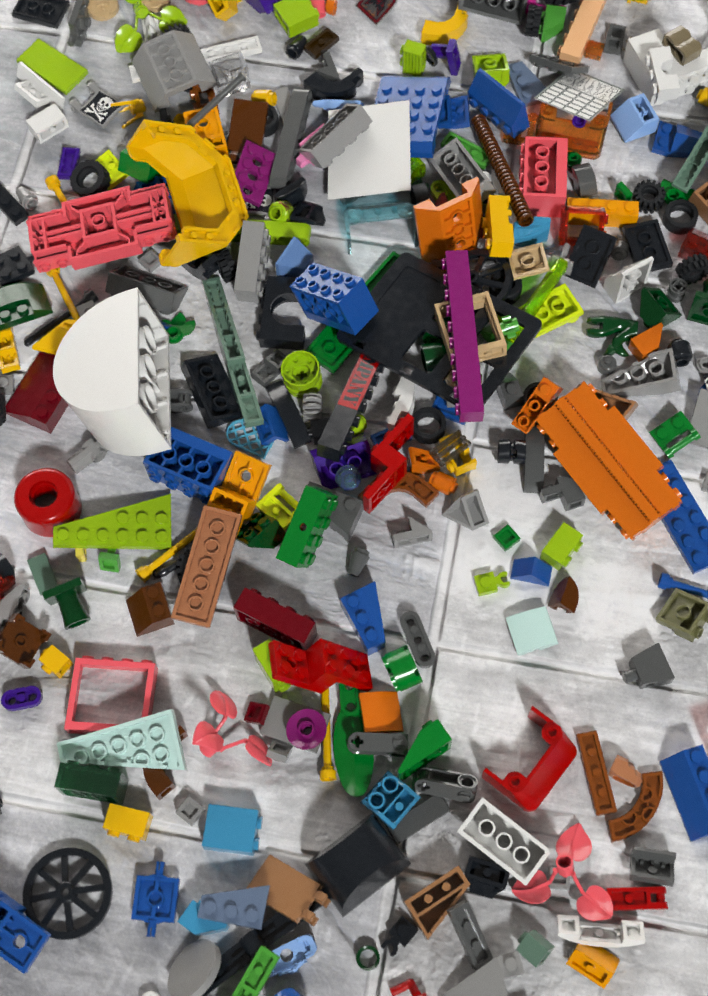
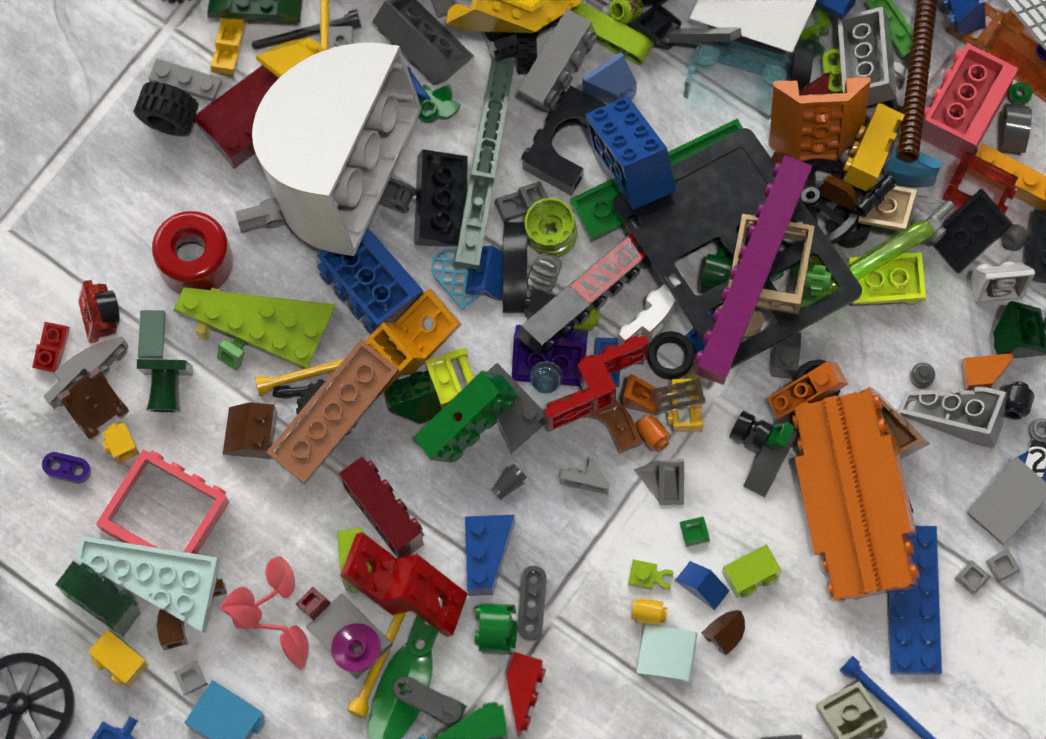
camera: 25 degrees right, 5 degrees up
(279, 751) = (317, 657): light grey plate -> none
(344, 205) = (704, 35): none -> dark grey tile
(380, 712) = (449, 667): orange slope -> none
(438, 698) = (522, 682): none -> red slope
(491, 265) = (839, 192): none -> reddish brown brick
(504, 607) = (649, 611): none -> yellow brick
(517, 256) = (875, 195): none -> black pin
(534, 443) = (779, 436): none -> green tile
(566, 490) = (792, 508): dark grey brick -> none
(610, 325) = (951, 328): dark green piece -> none
(671, 430) = (955, 491): green plate -> none

